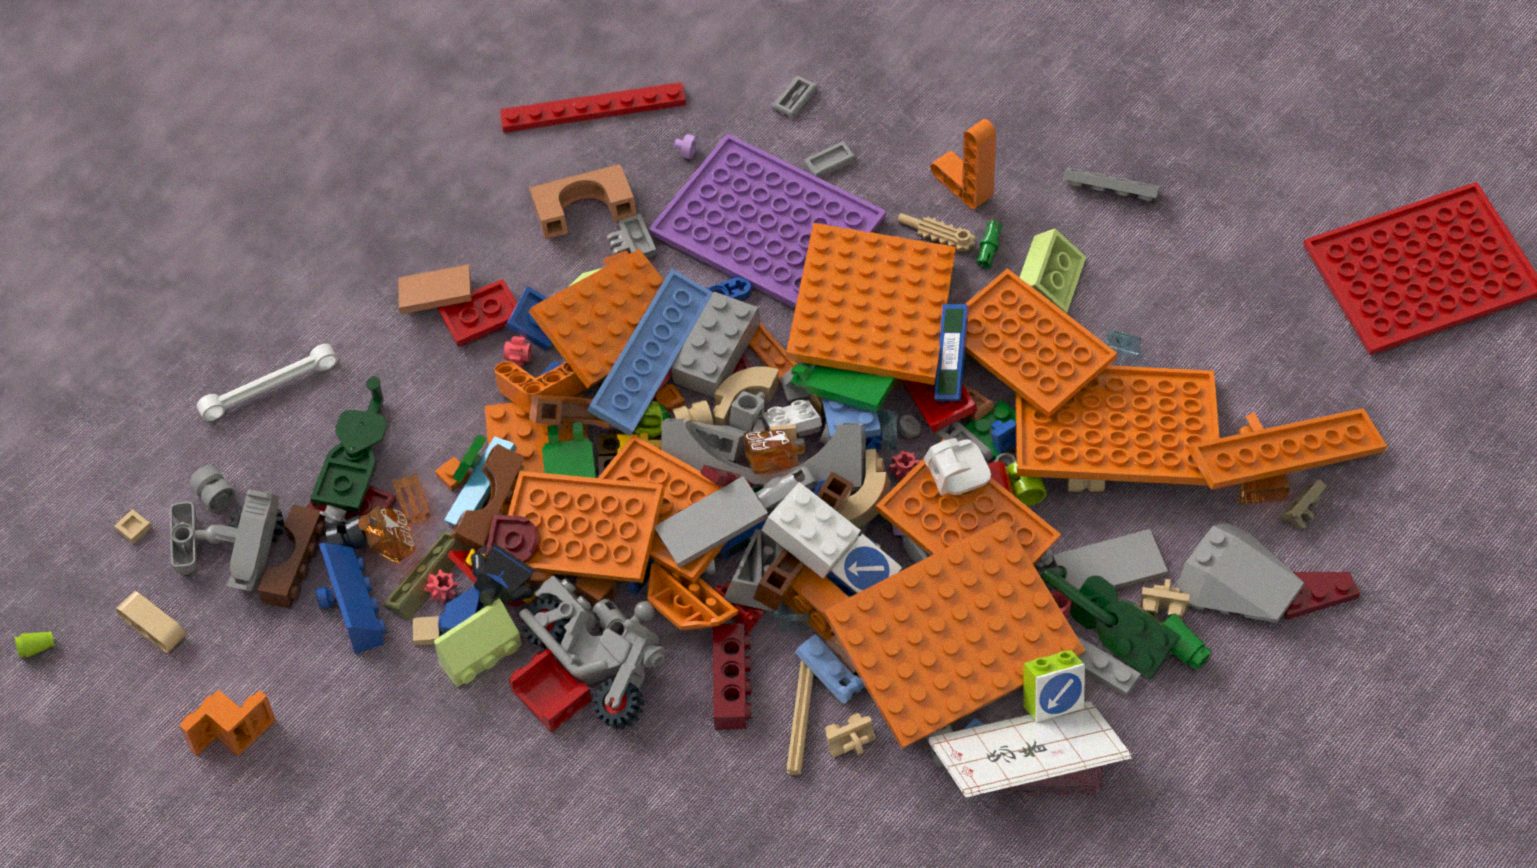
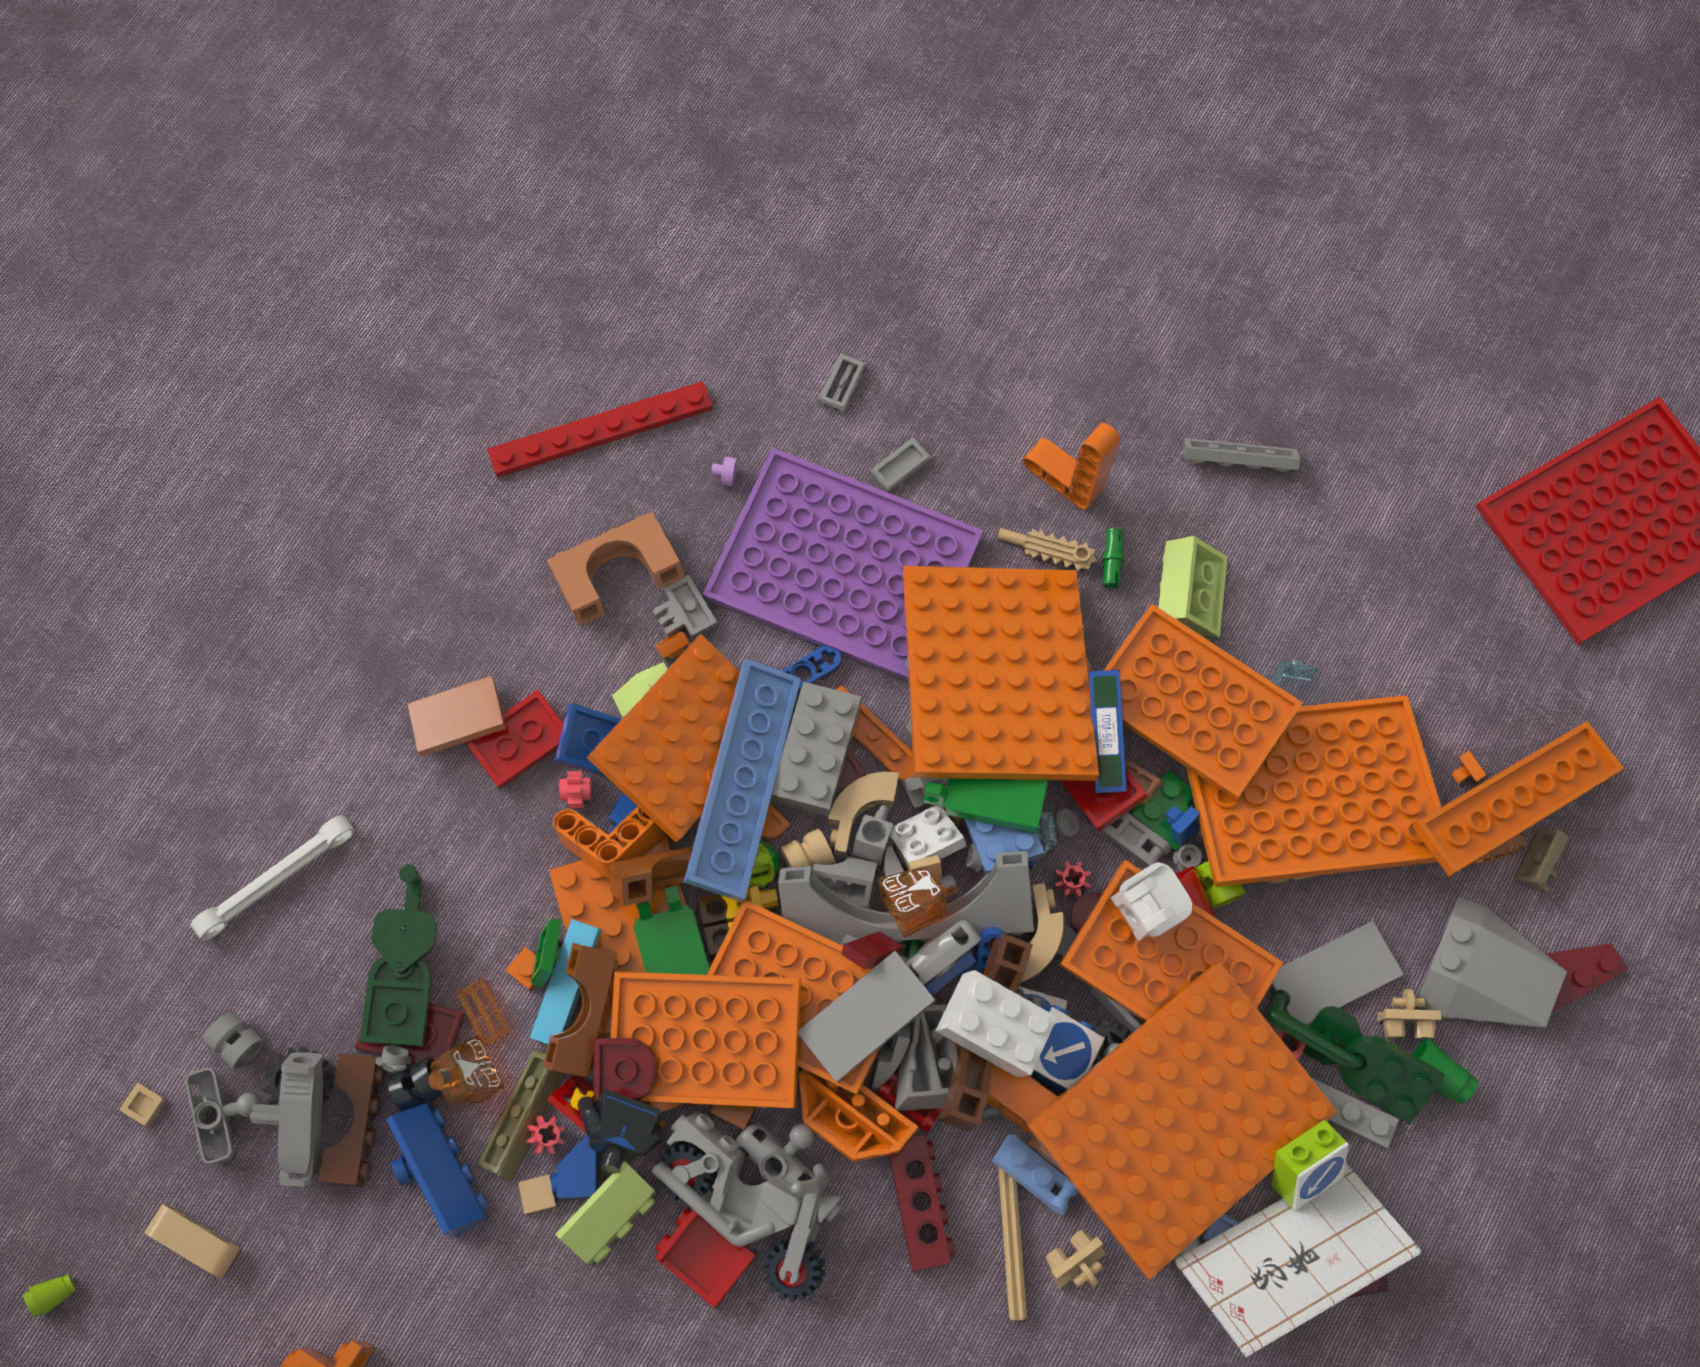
camera: 15 degrees left, 15 degrees up
(724, 568) = (890, 1057): none -> light grey slope

